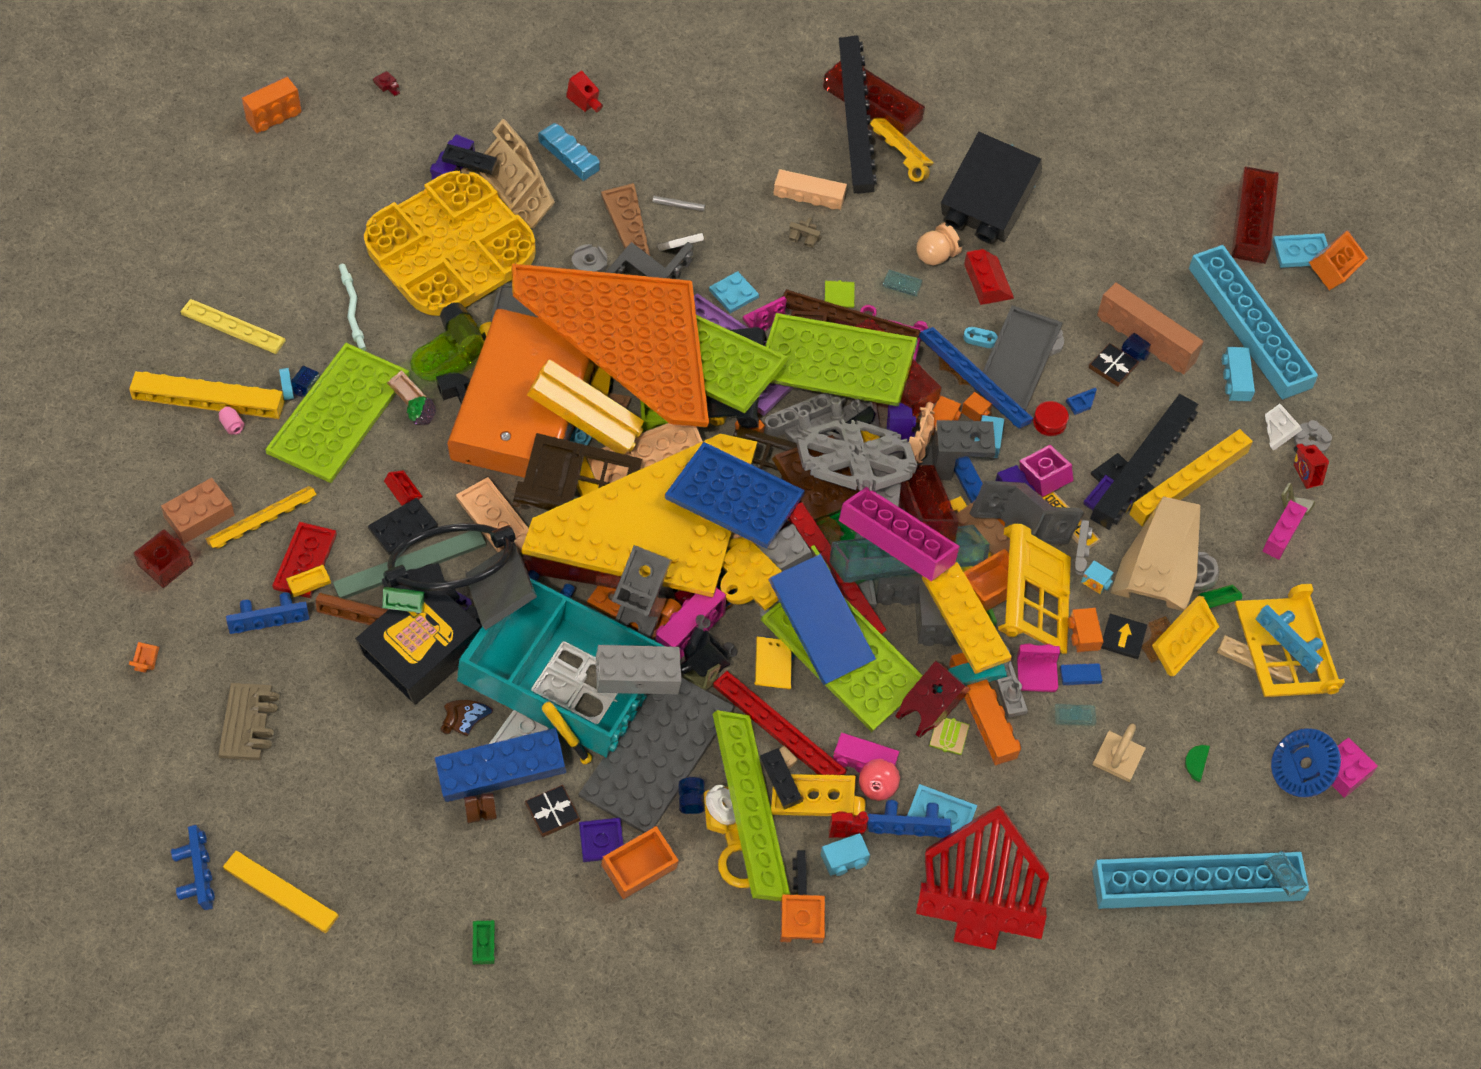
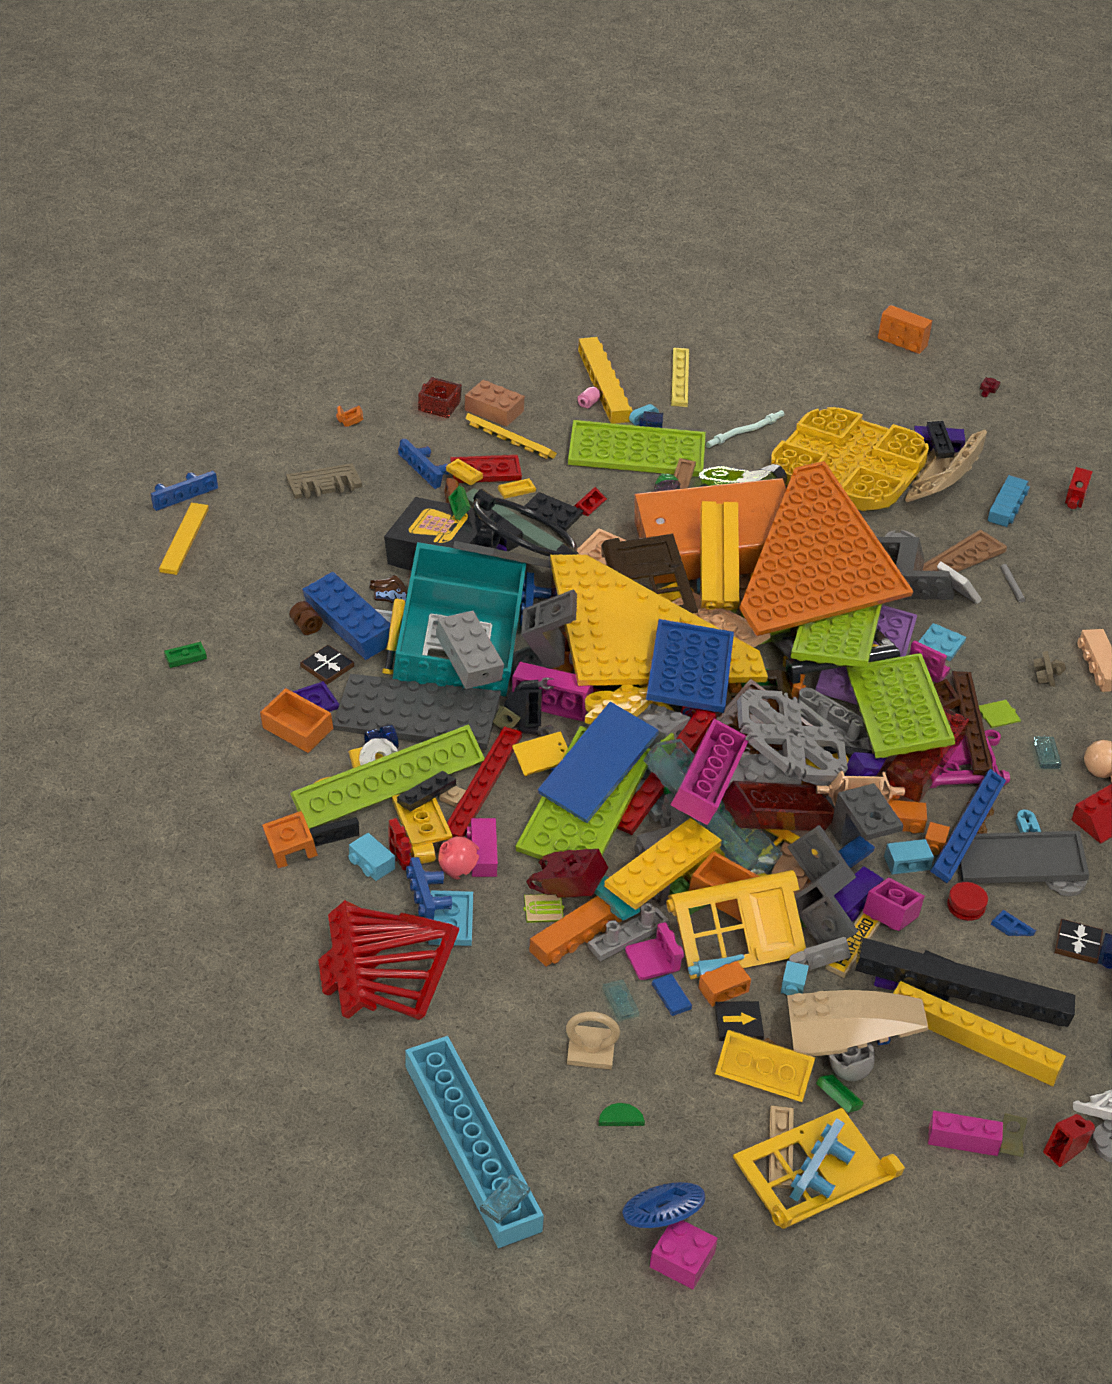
camera: 70 degrees right, 15 degrees down
(348, 543) = (516, 488): none -> yellow tile
(1065, 634) = (709, 965): none -> medium azure piece

